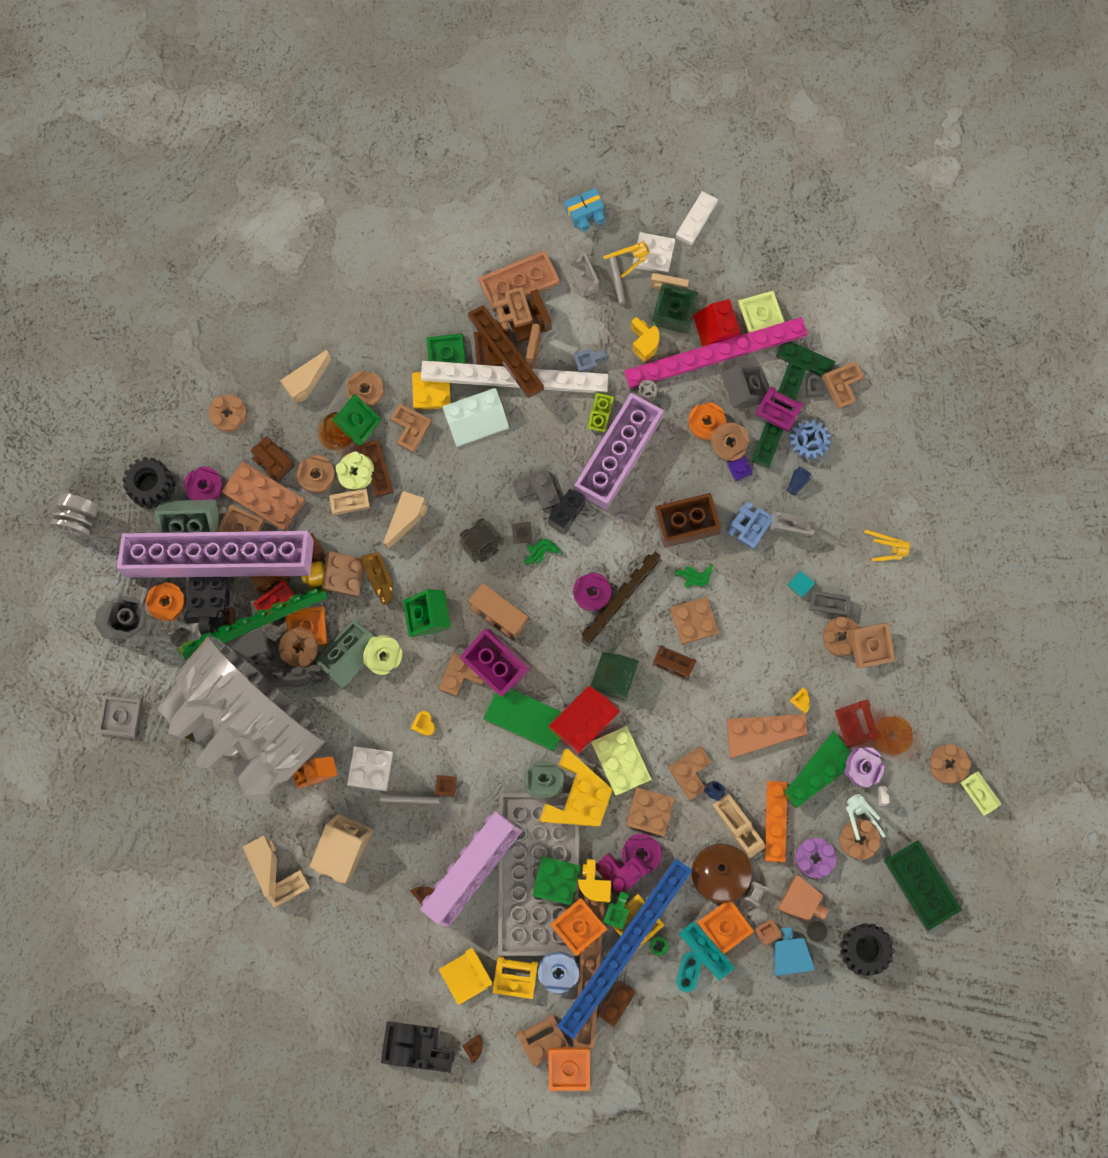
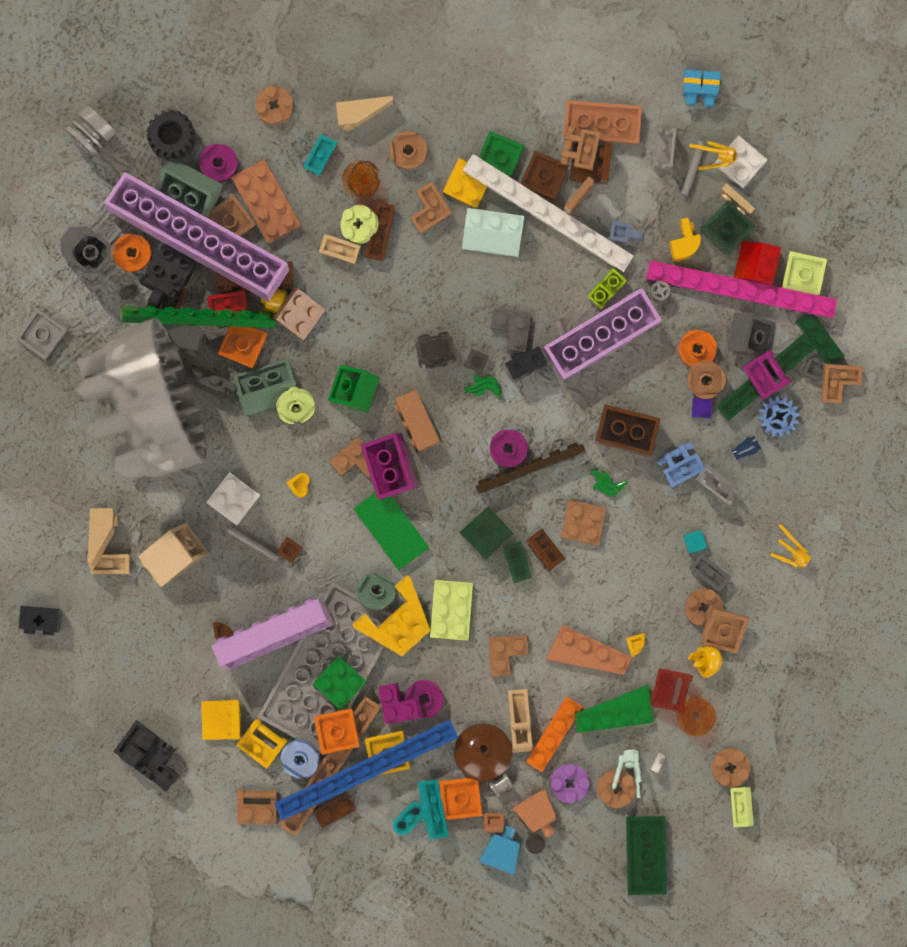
camera: 20 degrees right, 10 degrees up
(236, 975) = (29, 615): none -> black brick
(272, 458) = (292, 171): reddish brown brick -> none
(290, 432) = (320, 155): none -> teal plate
(307, 641) = (225, 369): medium nougat plate -> none
(309, 466) = (323, 196): medium nougat plate -> none
(315, 772) = (186, 477): orange slope -> none
(356, 419) = (385, 177): green tile -> none
(378, 577) = (329, 332): pearl gold hinge -> none
(405, 517) = (383, 289): tan slope -> none
(474, 1048) = (196, 781): reddish brown tile -> none
(505, 351) = (552, 186): reddish brown plate -> none
(569, 1068) = (265, 841): orange plate -> none
(583, 719) = (438, 557): red slope -> none
(594, 889) = (366, 707): yellow brick -> none
(617, 914) = (374, 738): green plate -> none
(650, 812) = (451, 667): medium nougat plate -> none
(653, 943) = (392, 778): green bush -> none
(656, 686) = (517, 562): none -> clear green plate
(696, 218) = (798, 149): white plate -> none
(714, 790) = (516, 679): dark blue plate -> none
(854, 764) = (648, 723): plate -> none
(873, 679) = (707, 660): none -> yellow piece
(883, 943) = (581, 892): black tyre -> none

